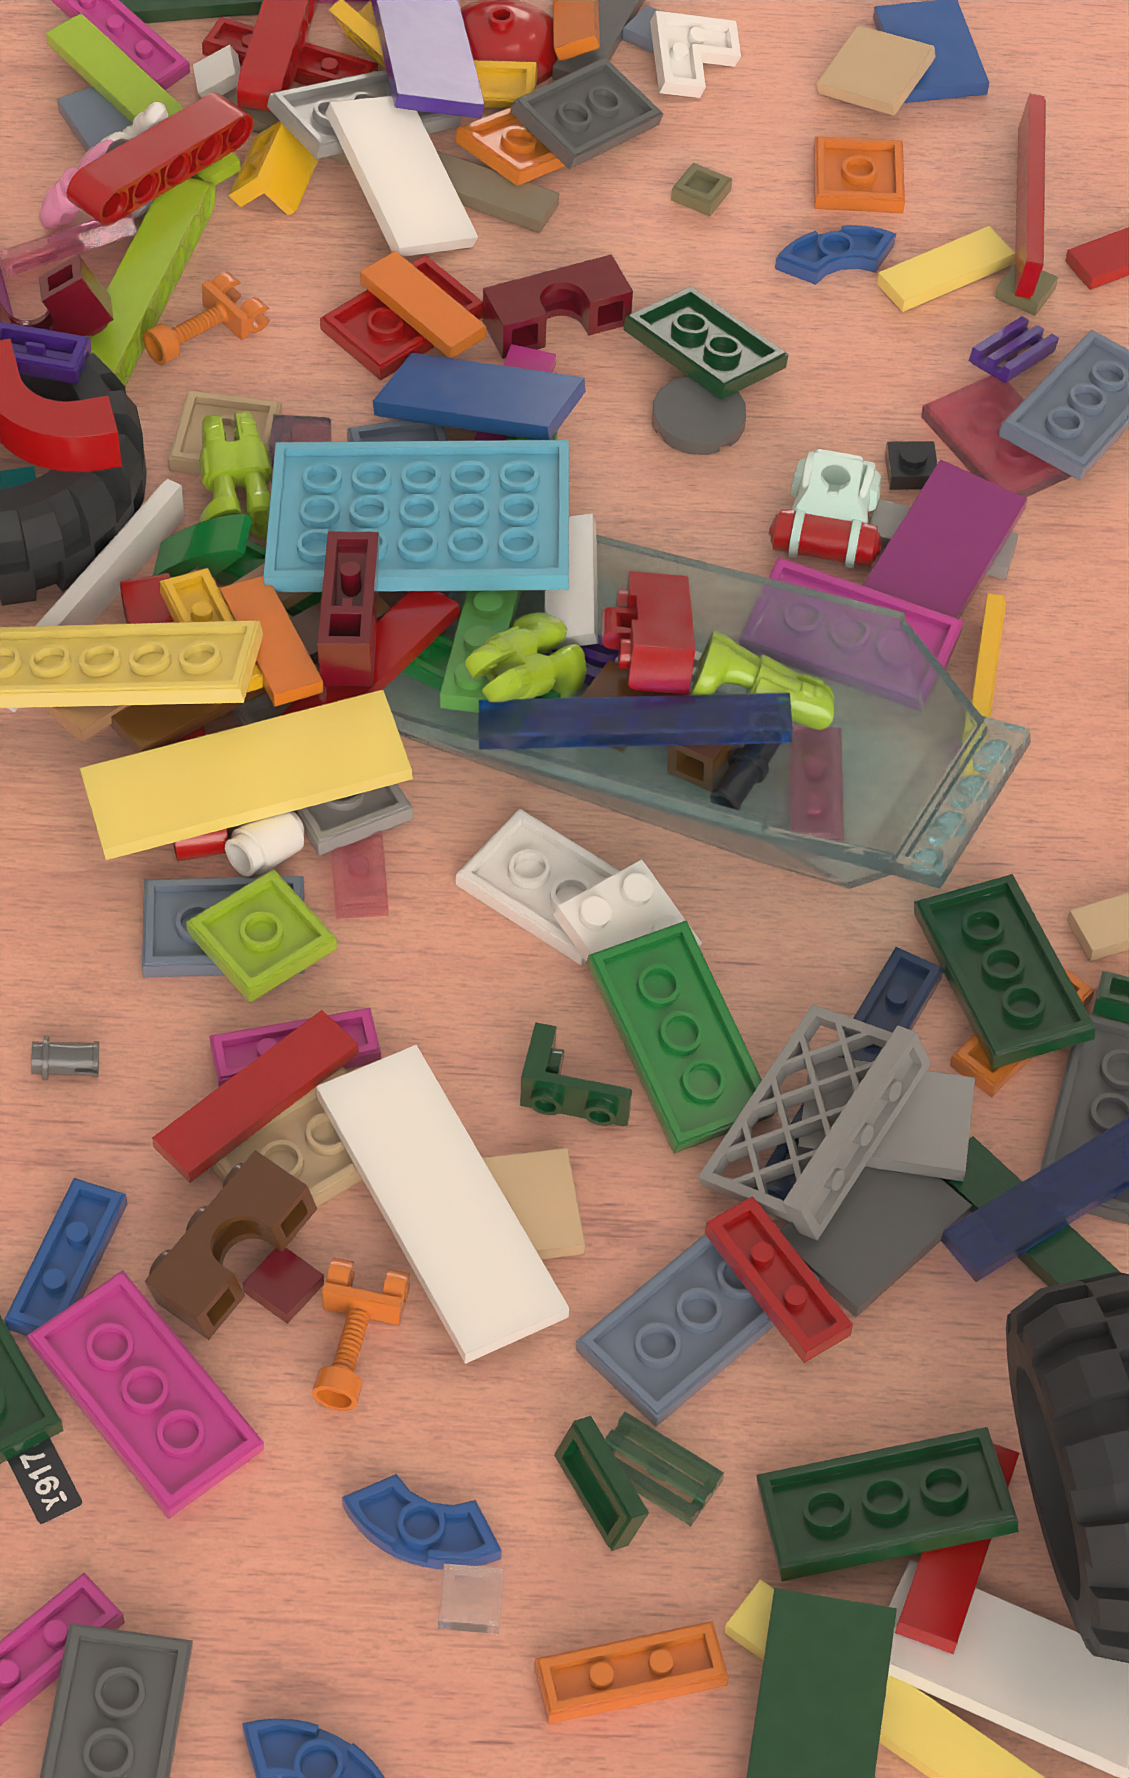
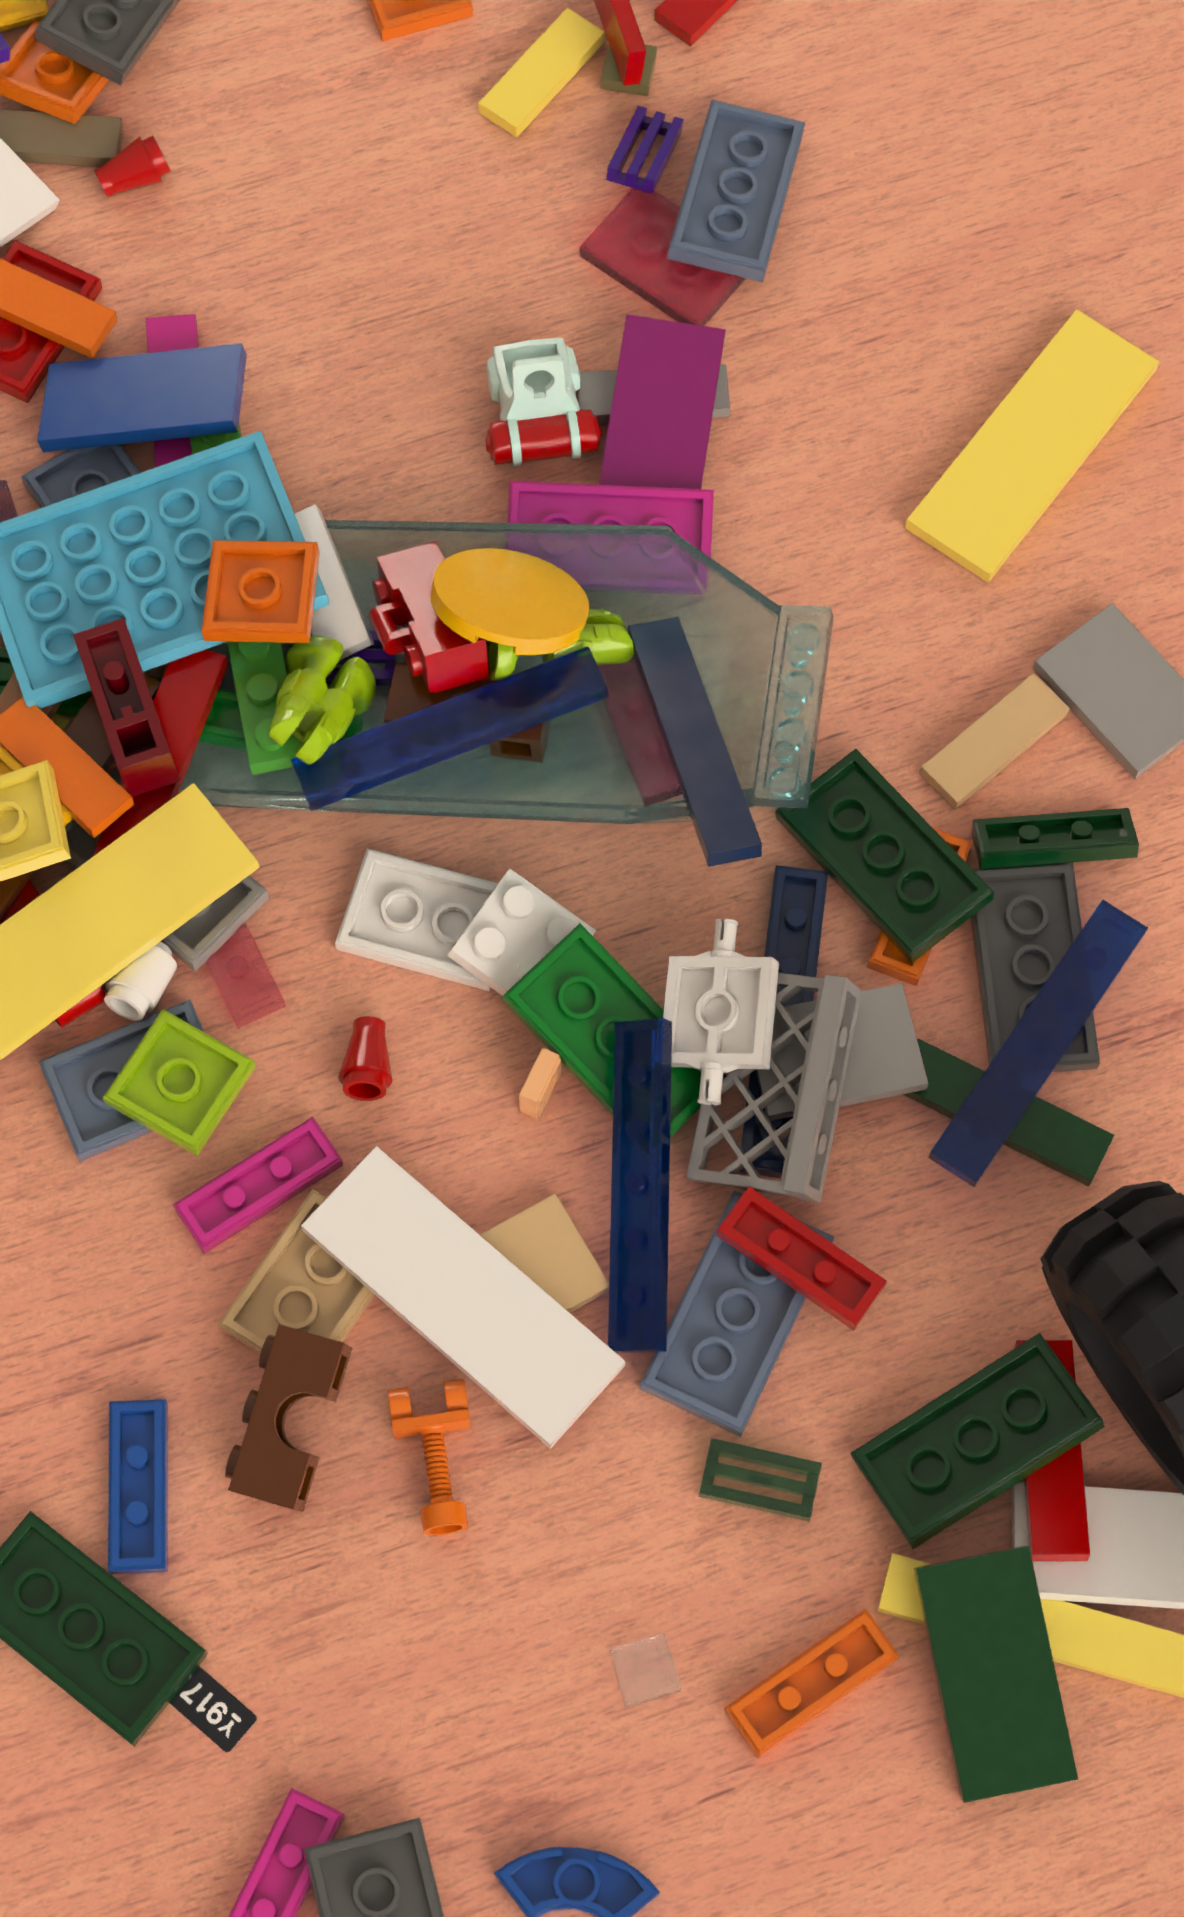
camera: 20 degrees left, 15 degrees up
(64, 1058) = (46, 1281): dark grey pin -> none
(145, 1394) = (270, 1592): dark pink tile -> none
(255, 1096) = (246, 1254): red tile -> none
(283, 1283) = (349, 1431): dark red tile -> none
(420, 1529) = (573, 1623): blue tile -> none
(438, 981) = (366, 1062): none -> red cone
(510, 554) = (260, 591): none -> orange tile
(553, 232) = (133, 167): none -> red cone
(553, 1093) = (522, 1144): dark green bracket -> none
(587, 291) = (198, 229): dark red arch -> none
(593, 1048) = (540, 1083): none -> light nougat tile
(601, 1483) = (718, 1518): dark green tile -> none
(648, 1165) = (640, 1186): none -> clear blue tile
(696, 418) = (363, 333): dark grey tile -> none
(701, 189) = (261, 59): olive tile -> none
(706, 342) = (339, 248): dark green tile -> none
(733, 629) = (509, 600): none -> yellow tile
(746, 768) = (567, 744): black pin -> none
(785, 1034) = (721, 1011): none -> white plate
(822, 254) = (422, 88): blue tile -> none
(854, 800) = (694, 743): none -> dark blue tile
(878, 1234) = (869, 1170): dark grey tile -> none
(909, 464) = (593, 318): black plate -> none
(988, 654) = (749, 525): yellow tile -> none

